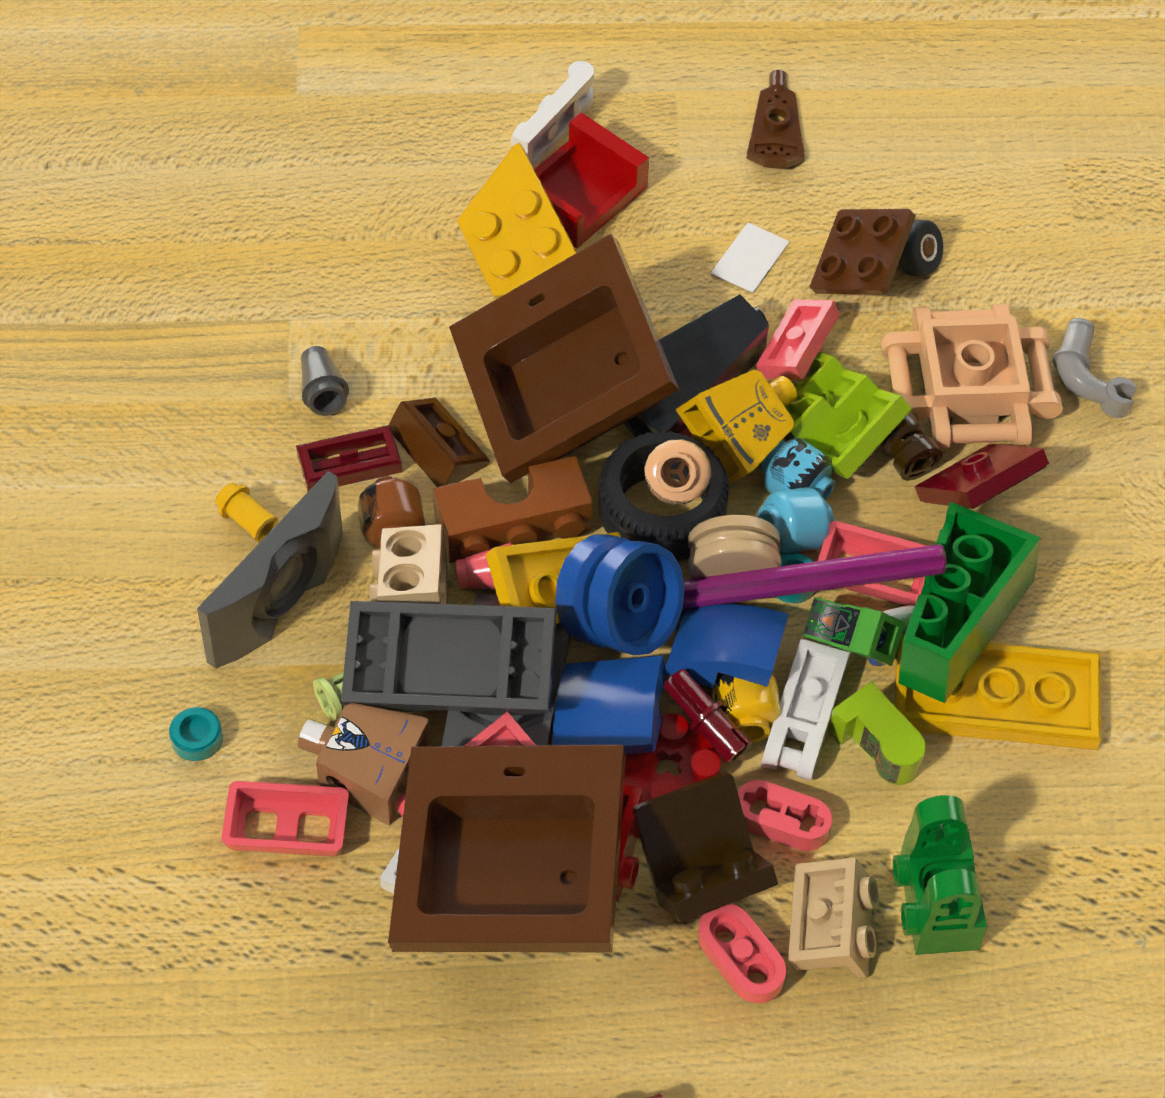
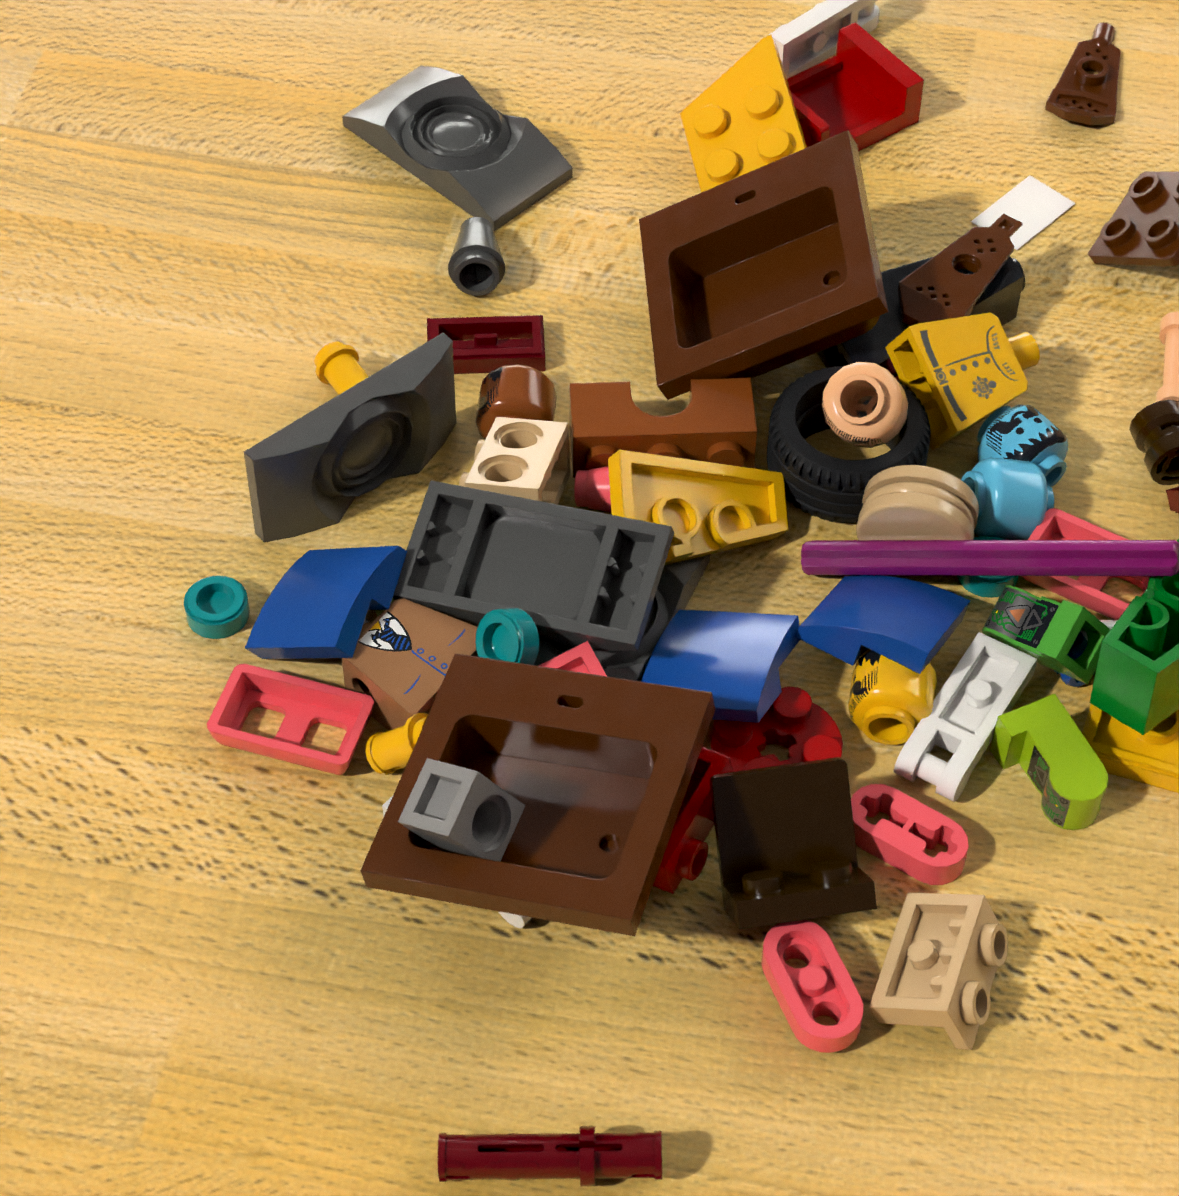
camera: 15 degrees right, 5 degrees down
(277, 277) = (460, 144): none -> dark grey slope
(289, 716) = (324, 602): none -> blue slope
(379, 825) = (393, 748): none -> yellow pin
(436, 441) = (593, 340): reddish brown slope -> none
(445, 723) = (508, 636): none -> teal tile
(454, 880) = (461, 811): none -> light grey brick
(620, 594) = (762, 534): blue wheel -> none
(707, 716) = (837, 697): dark red axle -> none
(711, 357) = (940, 291): none -> reddish brown piece
(798, 339) = (1060, 302): coral plate -> none
(843, 413) = (1093, 390): lime slope -> none
(940, 880) = (1090, 943): green brick -> none

